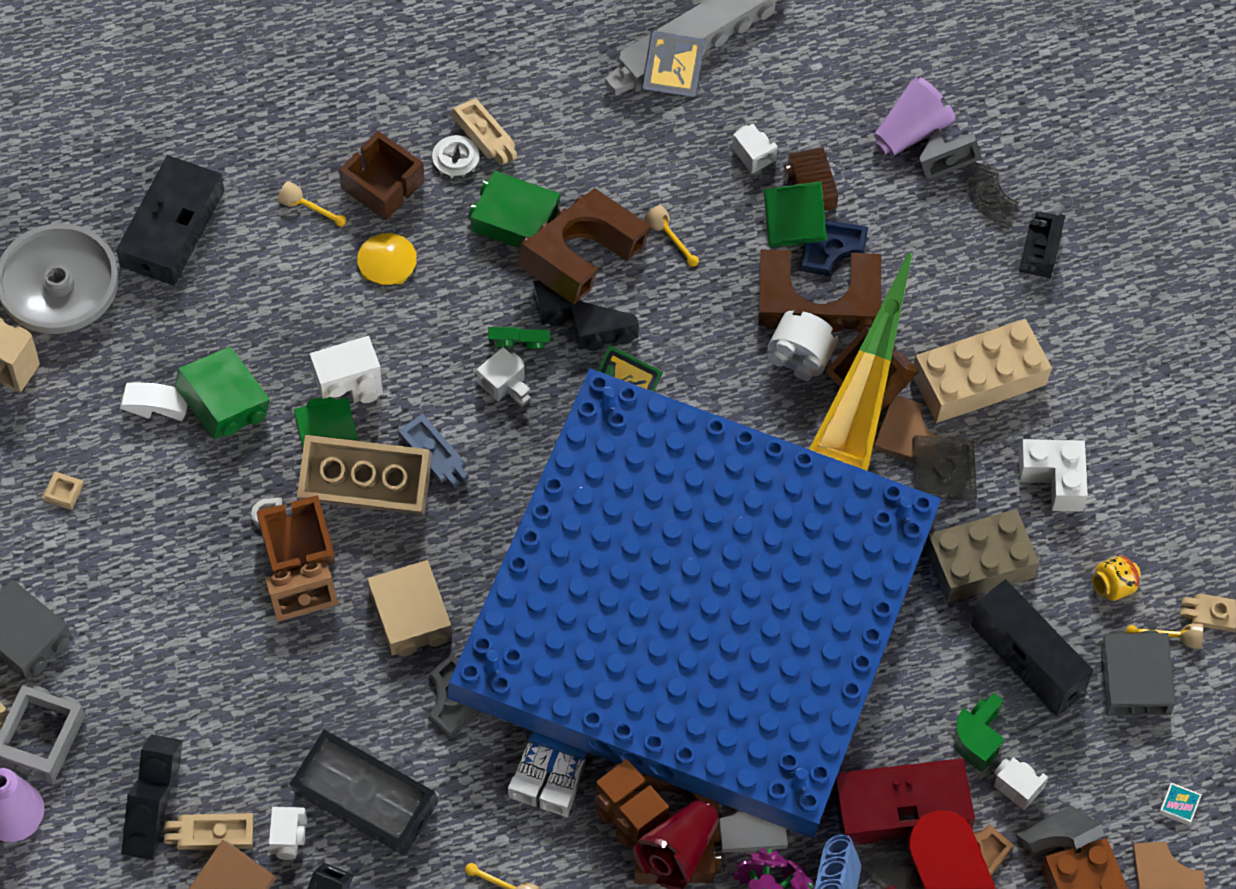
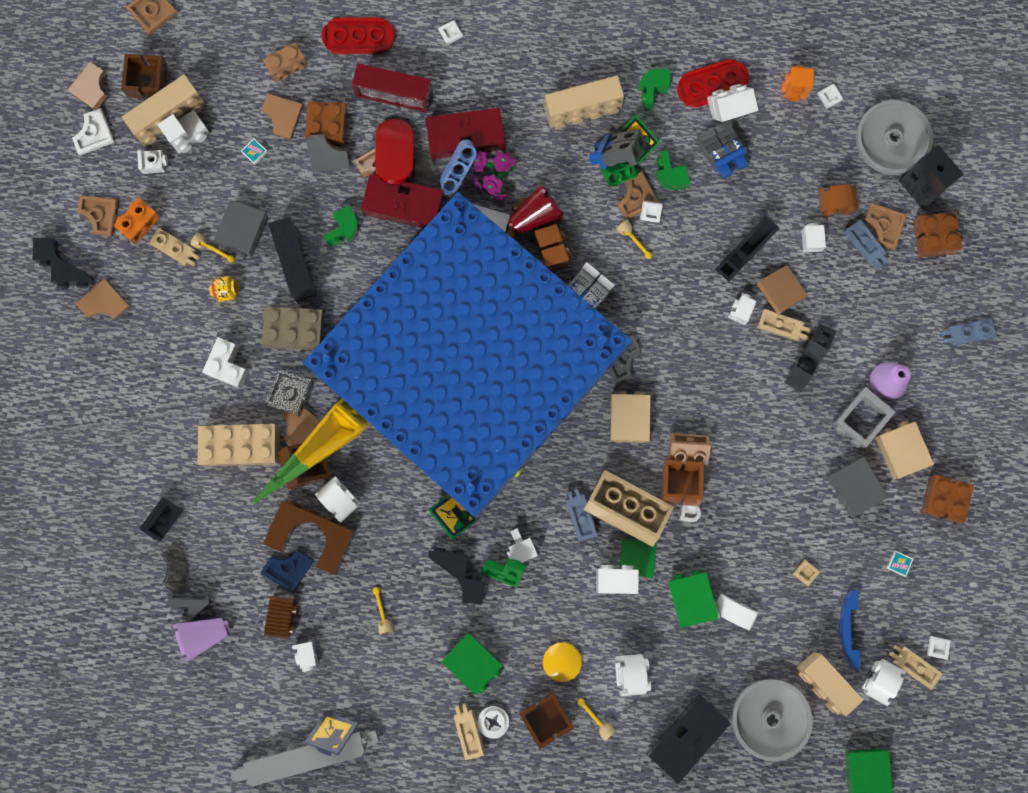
camera: 155 degrees left, 20 degrees up
(279, 267) = (632, 675): none -> white brick
(364, 792) = (693, 314): clear brick -> none
(589, 217) = (467, 614): reddish brown arch -> none
(795, 214) = (302, 594): green piece -> none
(1019, 782) = (334, 191): white brick -> none

